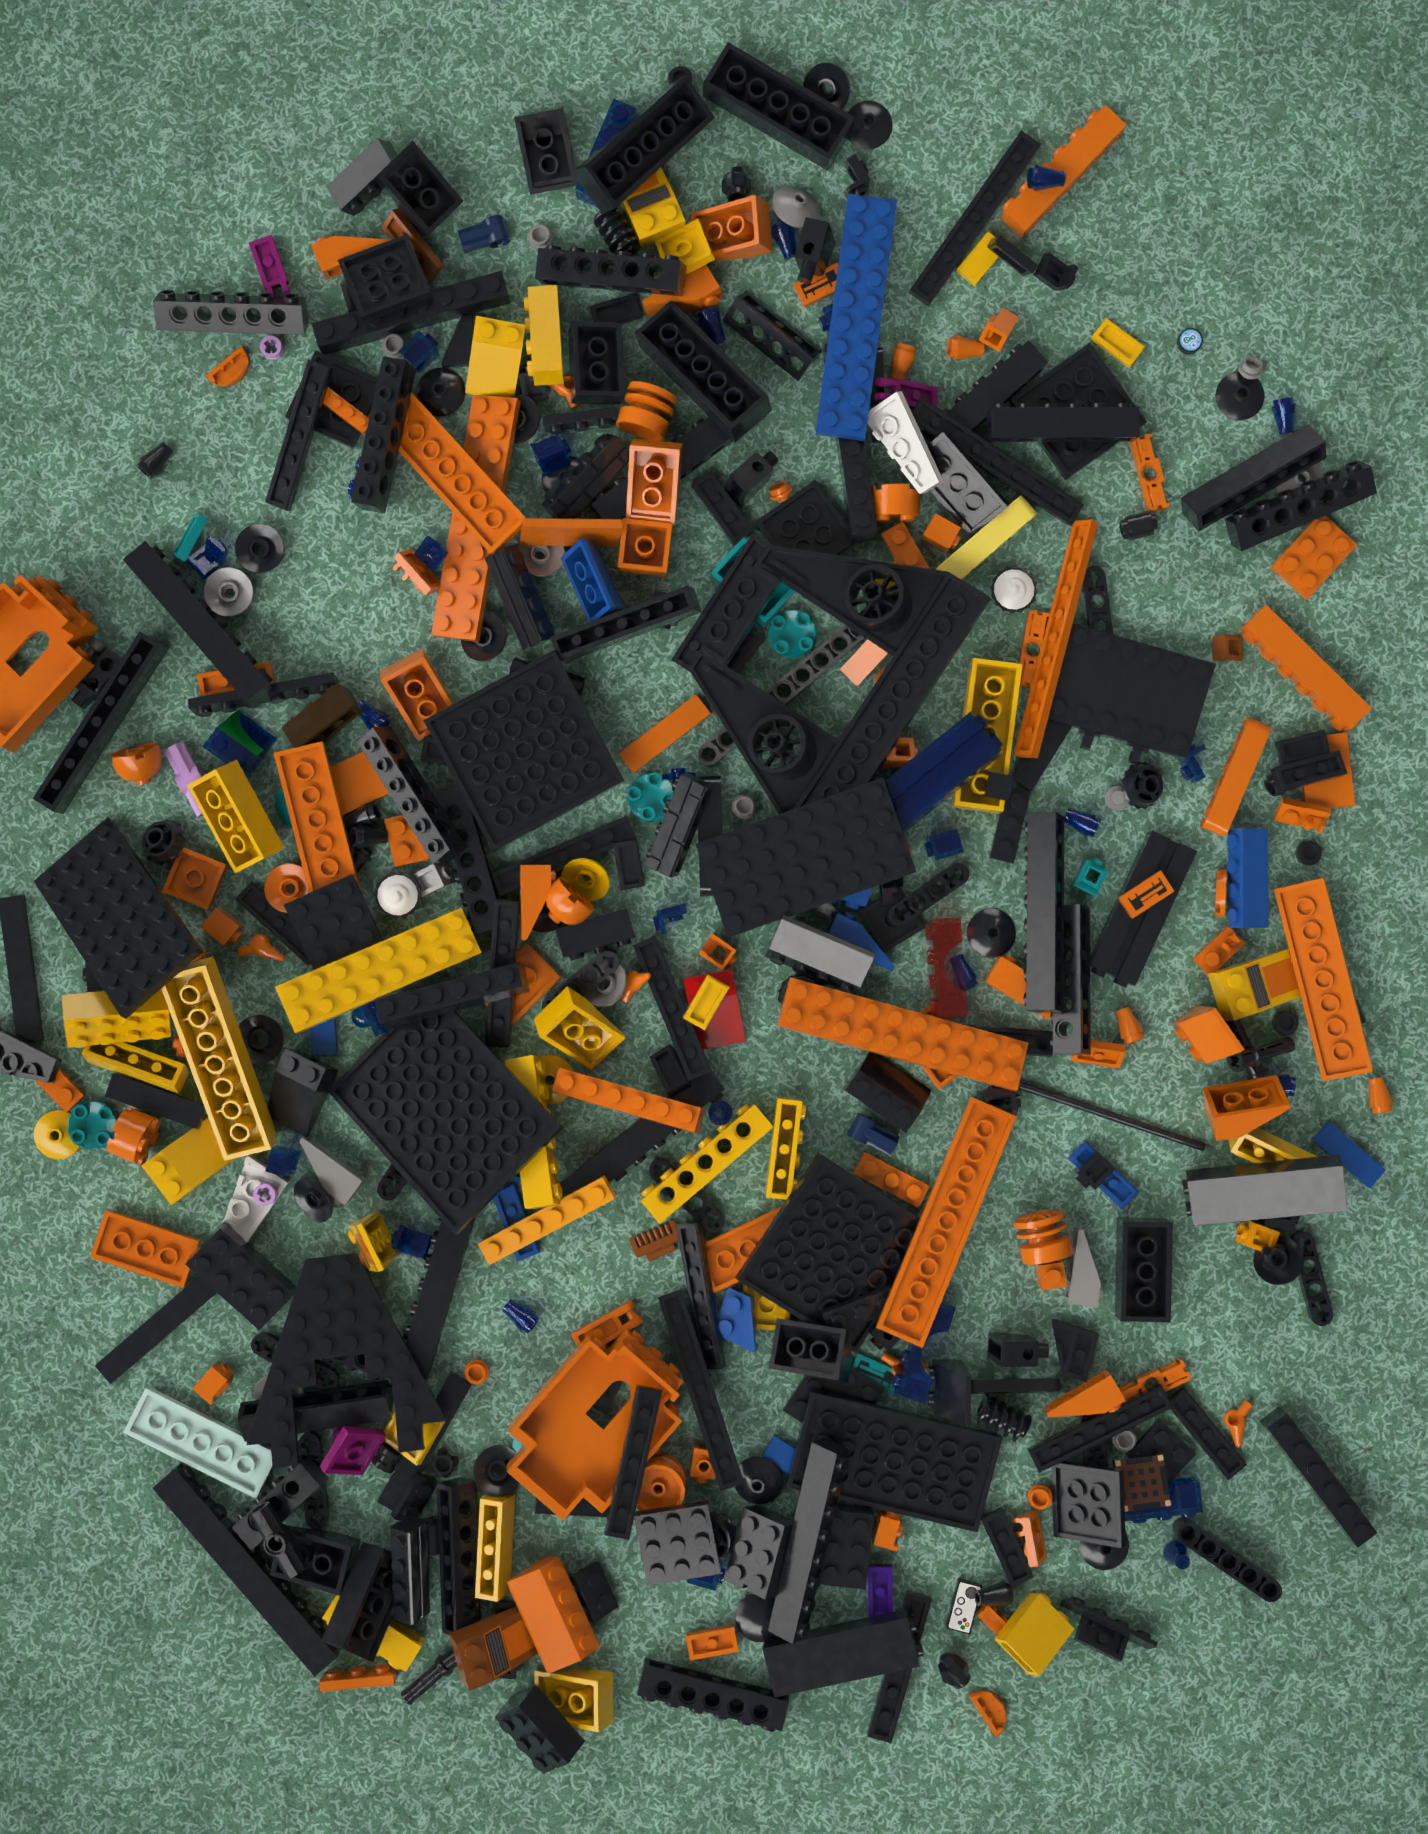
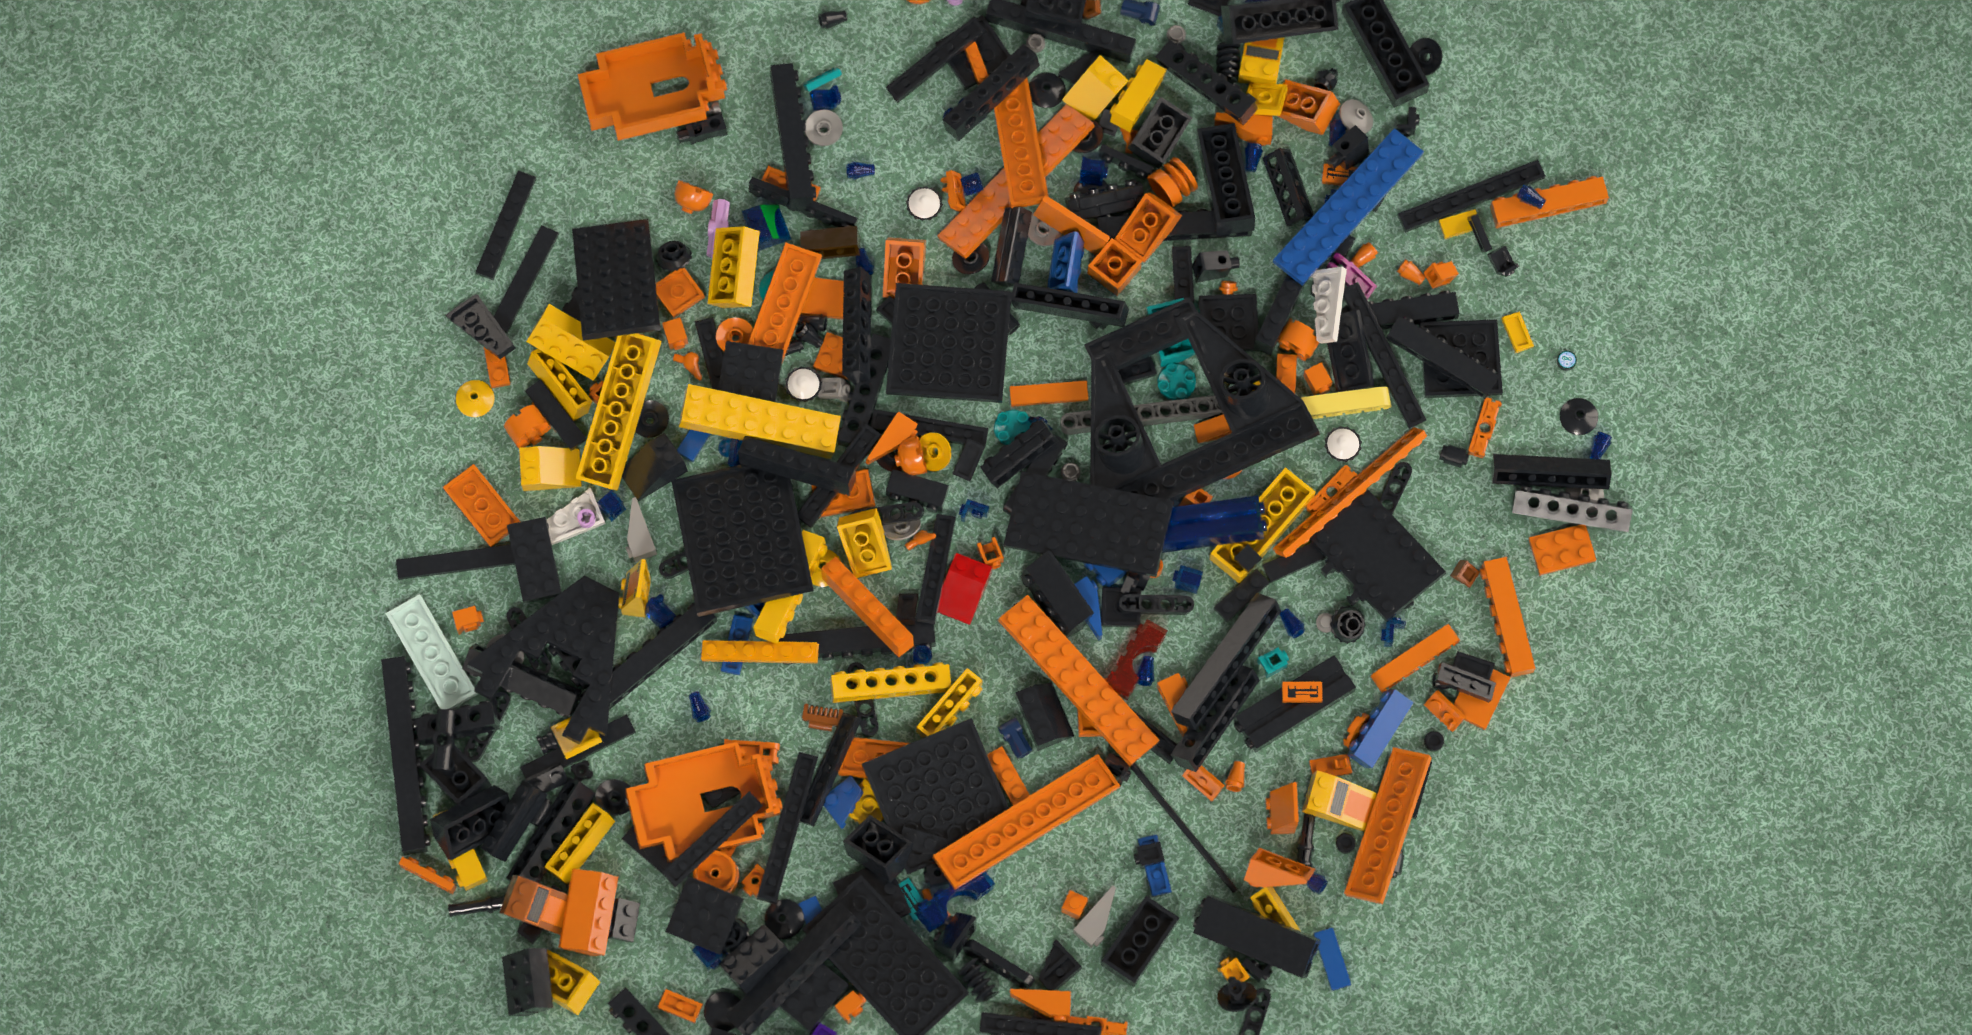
camera: 30 degrees right, 15 degrees down
(91, 1124) = (501, 404): teal dish -> none
(100, 723) = (685, 157): black brick -> none
(251, 539) = (859, 105): black dish -> none
(298, 615) = (859, 170): none -> clear blue cone
(313, 1199) = (614, 543): black dish -> none
(352, 1450) = (529, 719): magenta tile -> none
(393, 608) = (924, 203): none -> white piece
(420, 351) = (1050, 56): clear blue brick -> none
(476, 1372) = (644, 725): orange plate -> none
(618, 310) = (1198, 110): black tile -> none
(706, 1002) = (961, 575): yellow tile -> none
(824, 911) = (1079, 570): light grey plate -> none
(871, 135) = (1437, 103): black dish -> none
(978, 933) = (1187, 667): black dish -> none
(1015, 1350) = (1010, 937): black torso -> none
(1042, 1232) = (1086, 871): orange wheel -> none
(1251, 368) = (1596, 402): light grey plate -> none
(1253, 1055) = (1306, 843): black pin -> none
(1379, 1096) = (1377, 935): orange cone -> none

